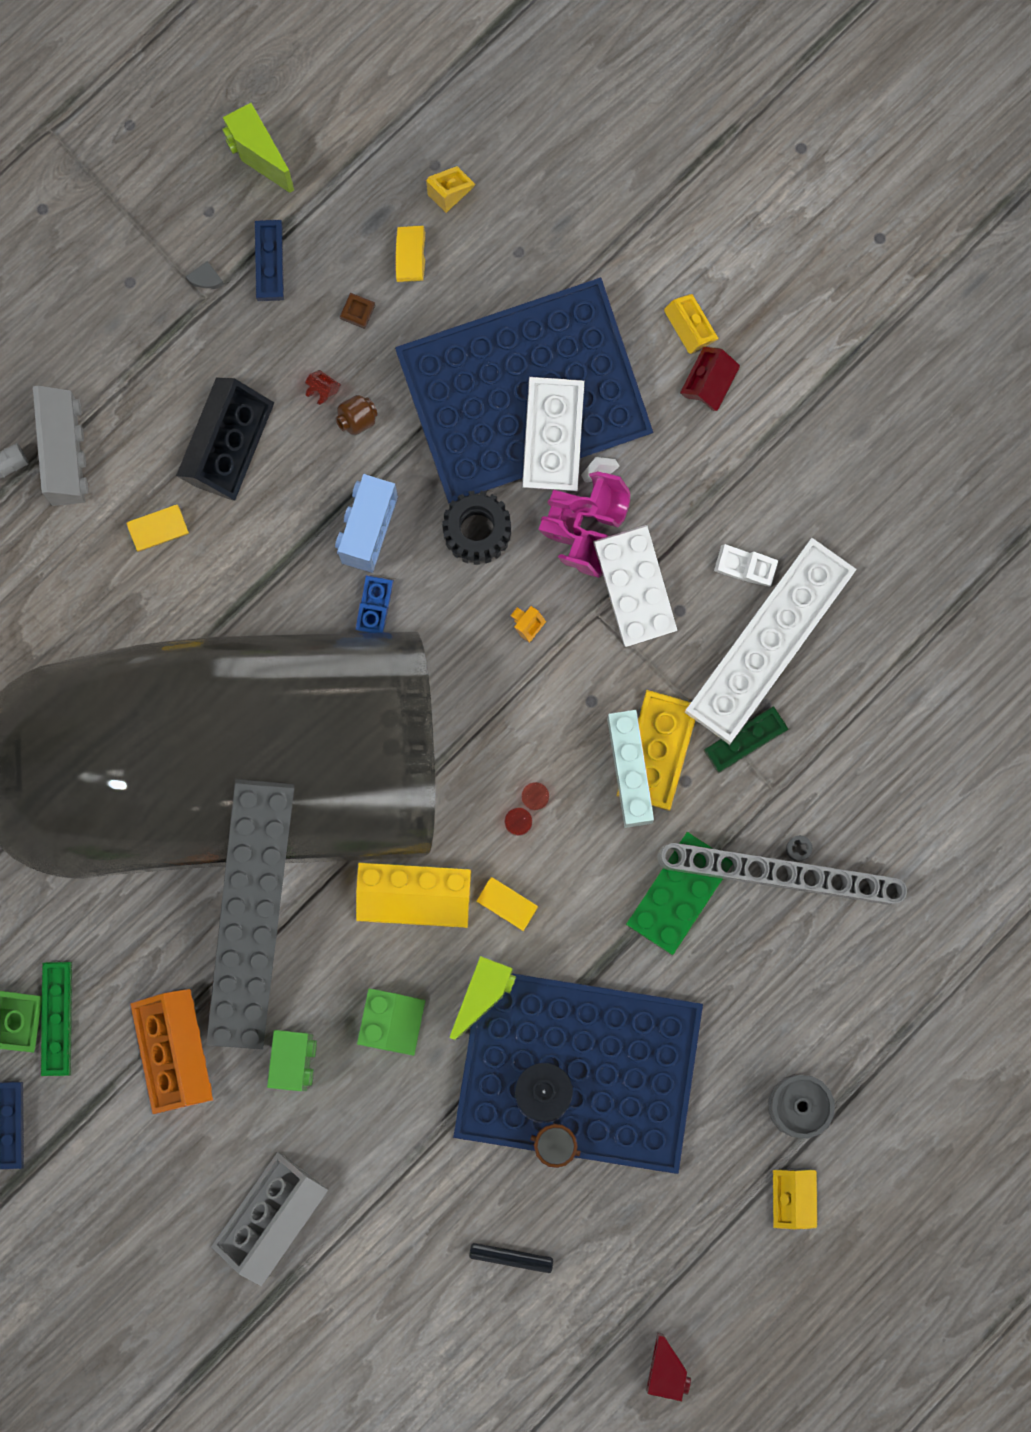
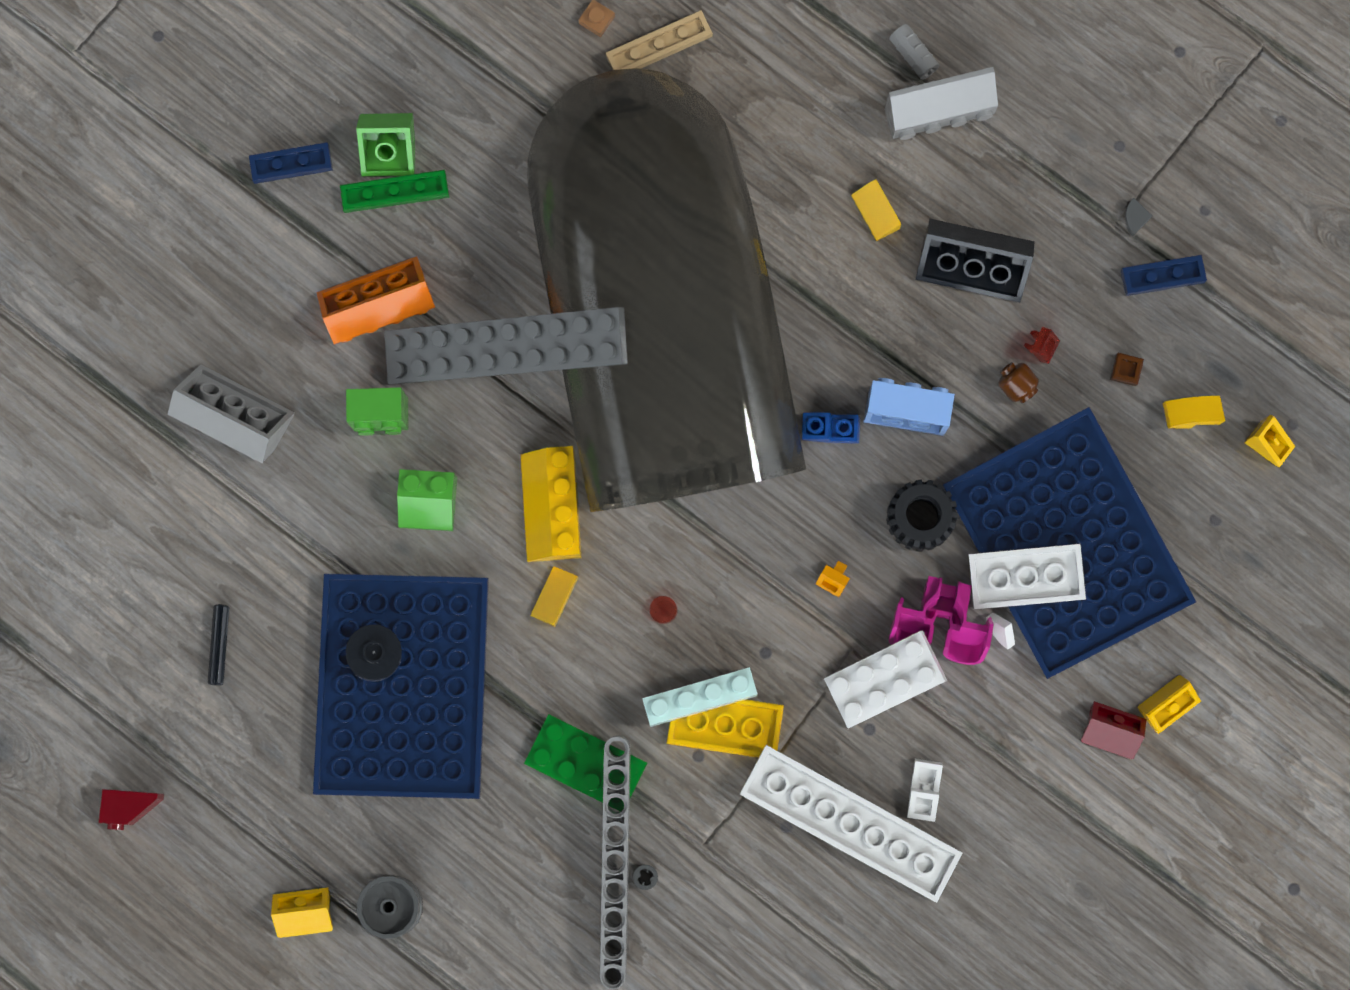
camera: 85 degrees right, 0 degrees up
(255, 147) = (1286, 234): lime slope -> none
(484, 991) = (467, 583): lime slope -> none
(518, 821) = (636, 596): clear red tile -> none
(555, 1145) = (325, 671): pearl dark grey piece -> none
(749, 739) = (747, 813): dark green tile -> none

